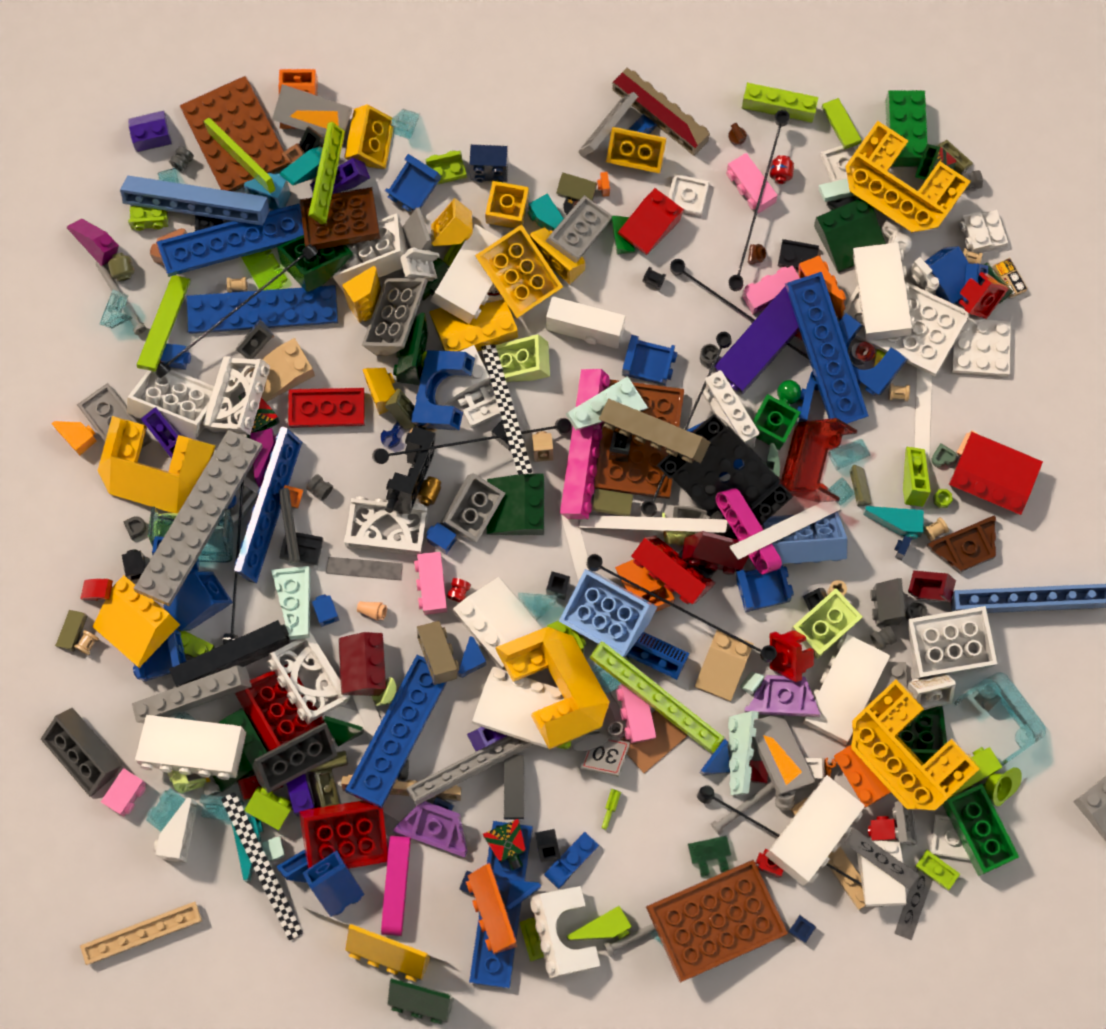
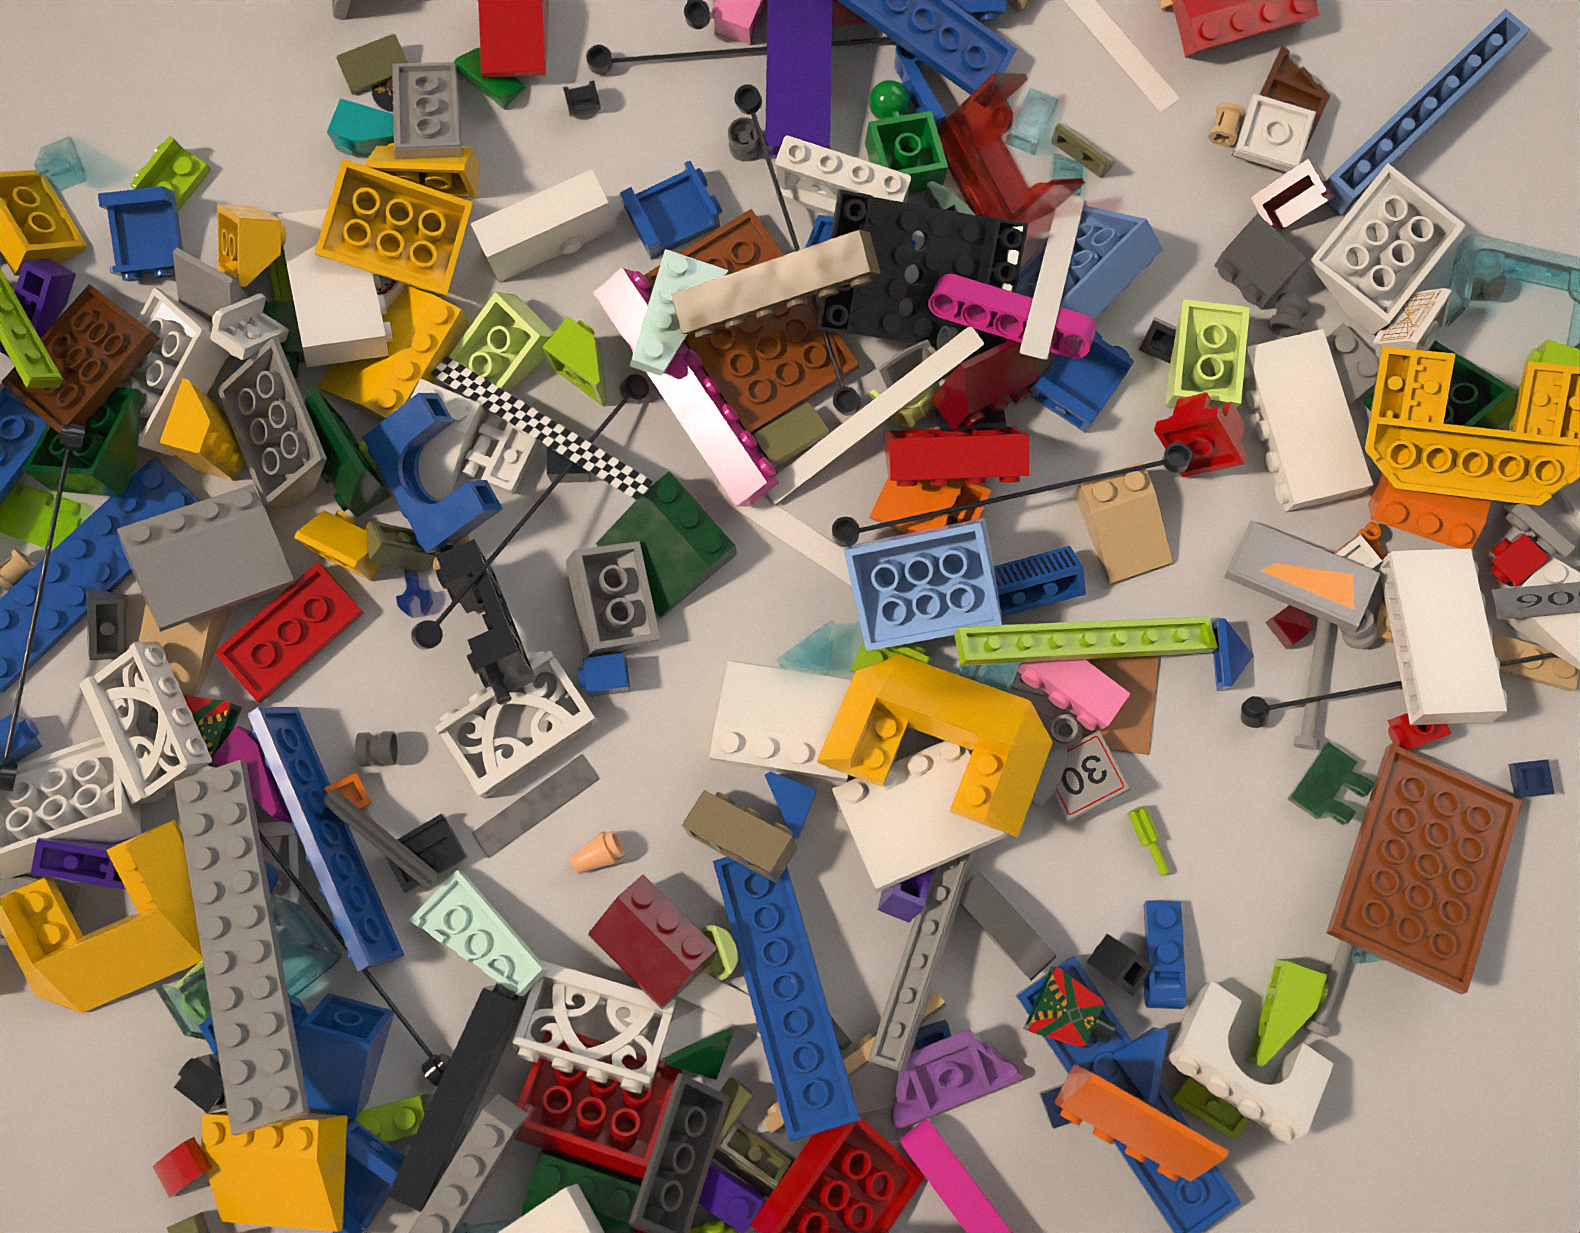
camera: 40 degrees left, 5 degrees up
(135, 526) = (159, 1028): dark grey tile -> none
(320, 347) = (205, 557): none -> light grey slope
(325, 610) = (533, 910): blue brick -> none
(429, 491) = (533, 625): pearl gold brick -> none
(431, 583) = (646, 747): bright pink brick -> none
(458, 590) = (692, 725): red wheel -> none
(488, 163) = (224, 120): dark blue brick -> none
(507, 204) = (298, 157): yellow brick -> none
(542, 446) = (633, 437): tan slope -> none
(549, 391) = (576, 357): none -> lime slope
(558, 585) = (820, 603): black brick -> none
(603, 184) = (406, 29): orange plate -> none
(620, 447) = (738, 351): black slope -> none
(740, 741) = (1235, 596): light aqua wing -> none
(752, 682) = (1180, 514): light aqua slope -> none
(784, 697) = (1239, 498): medium lavender wing -> none
(838, 584) = (1171, 311): tan bush -> none
(901, 521) = (1174, 151): teal slope -> none
(902, 546) = (1208, 180): dark blue plate -> none
(916, 479) = (1146, 80): lime slope -> none
(918, 608) = (1306, 242): dark grey wheel -> none
(943, 456) = (1149, 26): sand green tile -> none
(943, 498) = (1198, 78): lime tile -> none
(951, 551) = (1274, 133): none -> white tile

